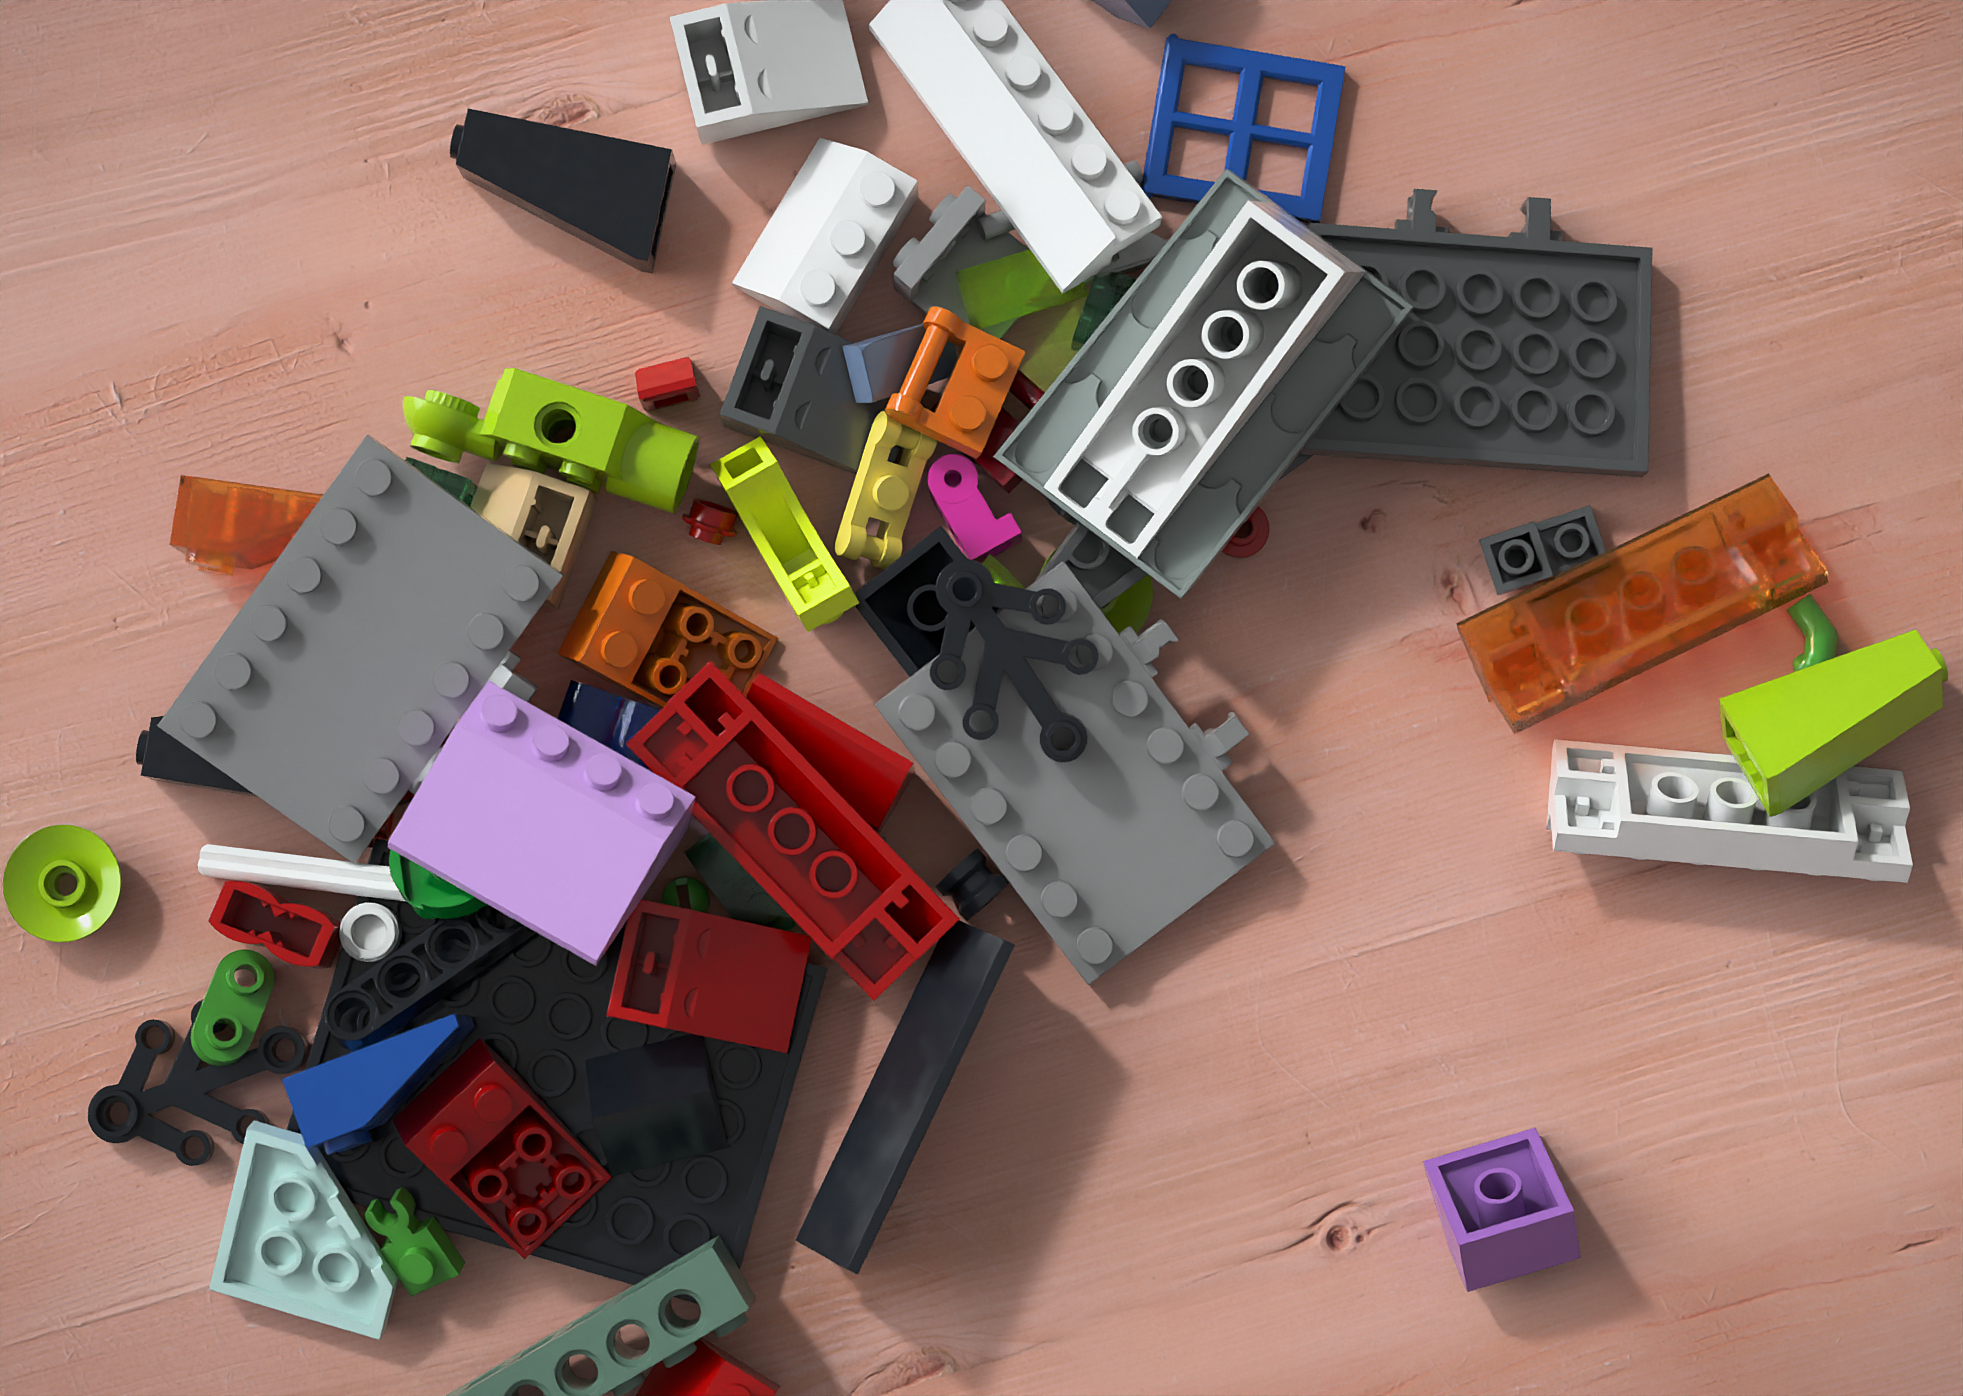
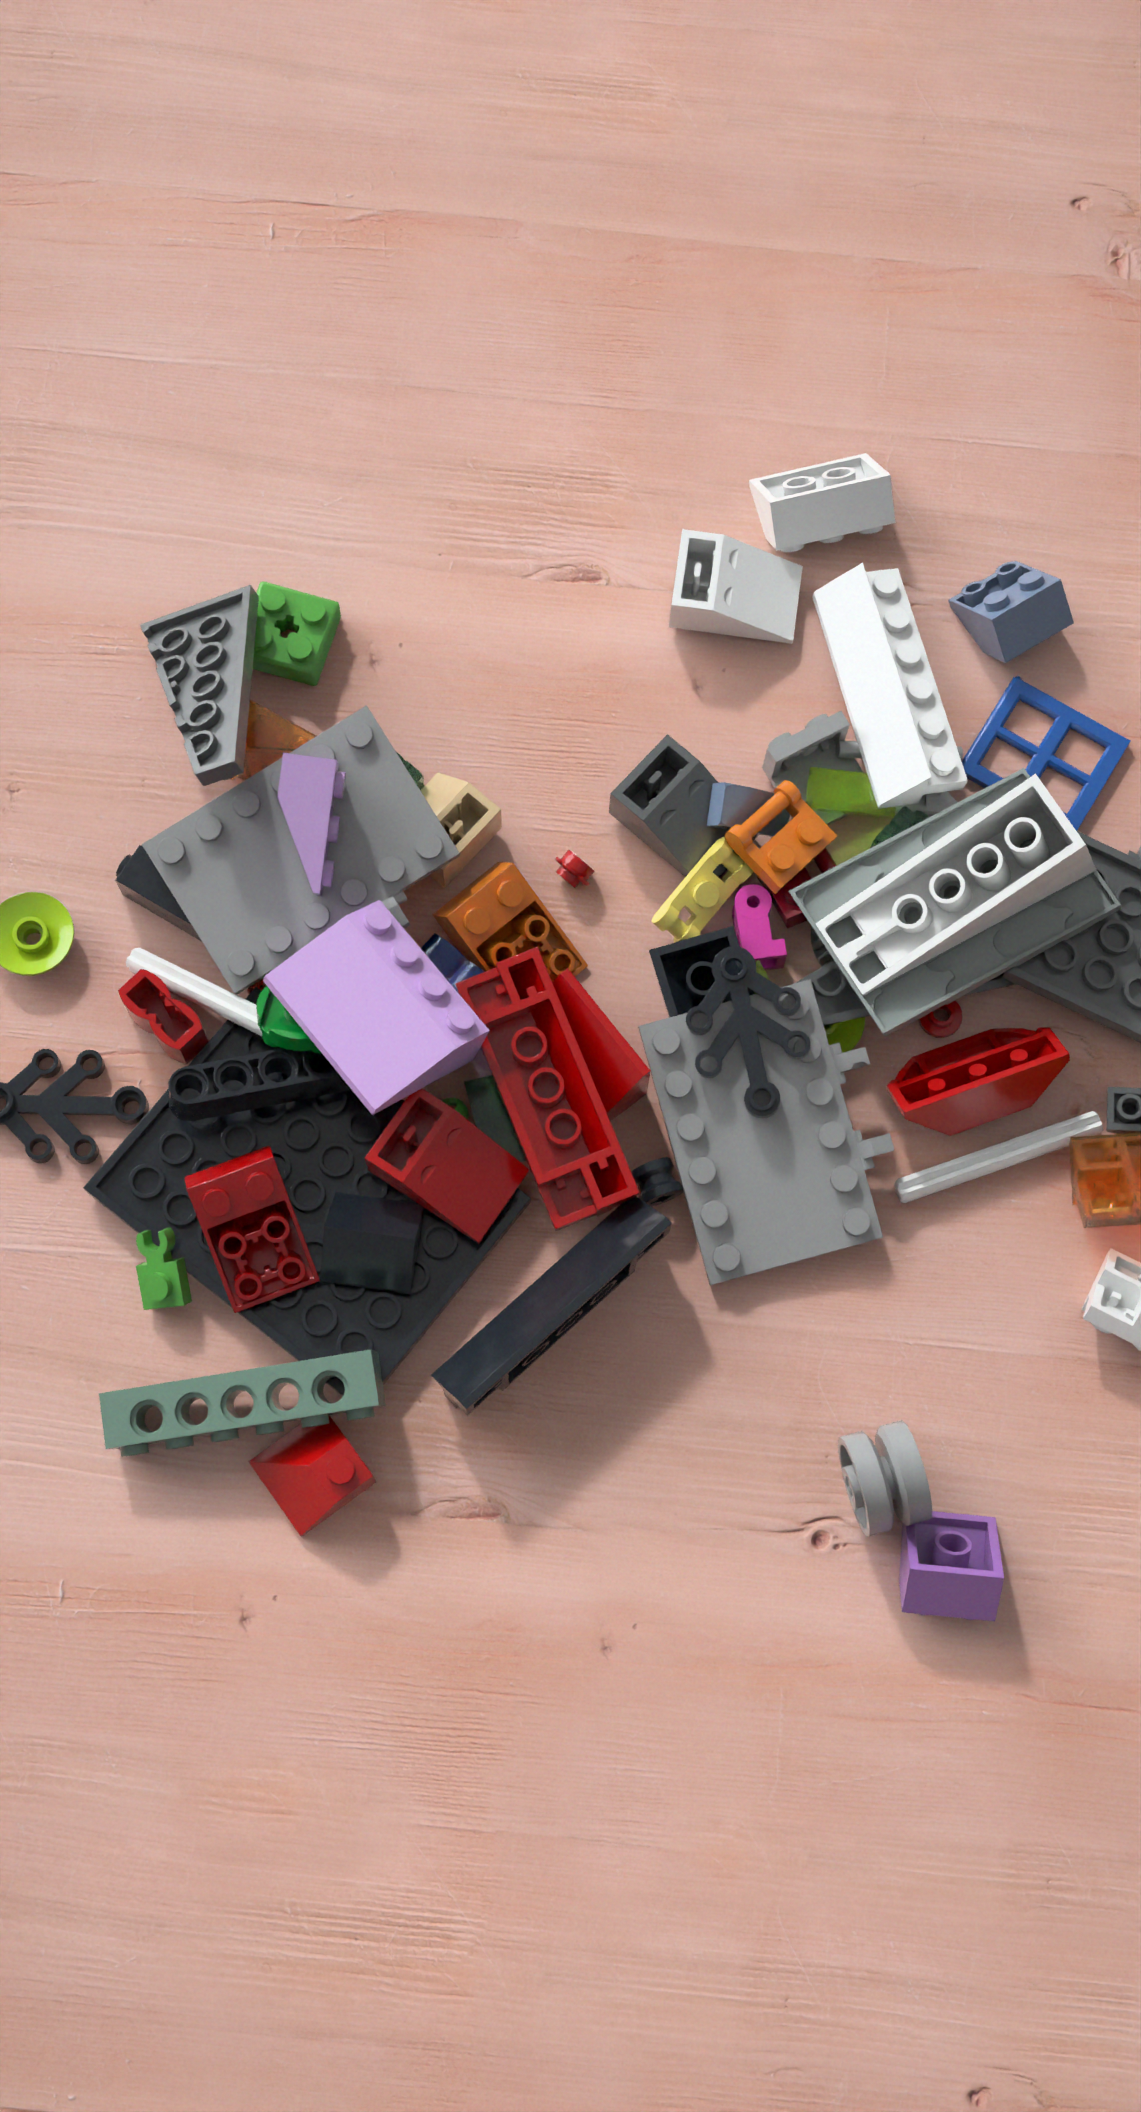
camera: 20 degrees right, 10 degrees down
(142, 466) = (207, 676): none -> dark grey wing
(189, 327) = (301, 653): none -> bright green brick
(234, 1006) = (110, 1060): bright green plate -> none
(299, 1239) = (84, 1235): light aqua plate -> none
(347, 600) = (307, 802): none -> lavender slope
(366, 1087) = (178, 1141): blue slope -> none
(370, 932) = (224, 1042): white tile -> none
(577, 180) = (573, 614): black slope -> none
(609, 447) = (499, 766): lime brick -> none
(667, 384) = (581, 771): red slope -> none
(784, 534) = (621, 892): neon yellow arch -> none
(828, 235) = (735, 713): white slope -> none
(1314, 595) = (978, 1078): none -> red wedge
(1376, 681) = (996, 1157): none -> white axle
(1380, 1149) = (885, 1478): none -> light grey wheel

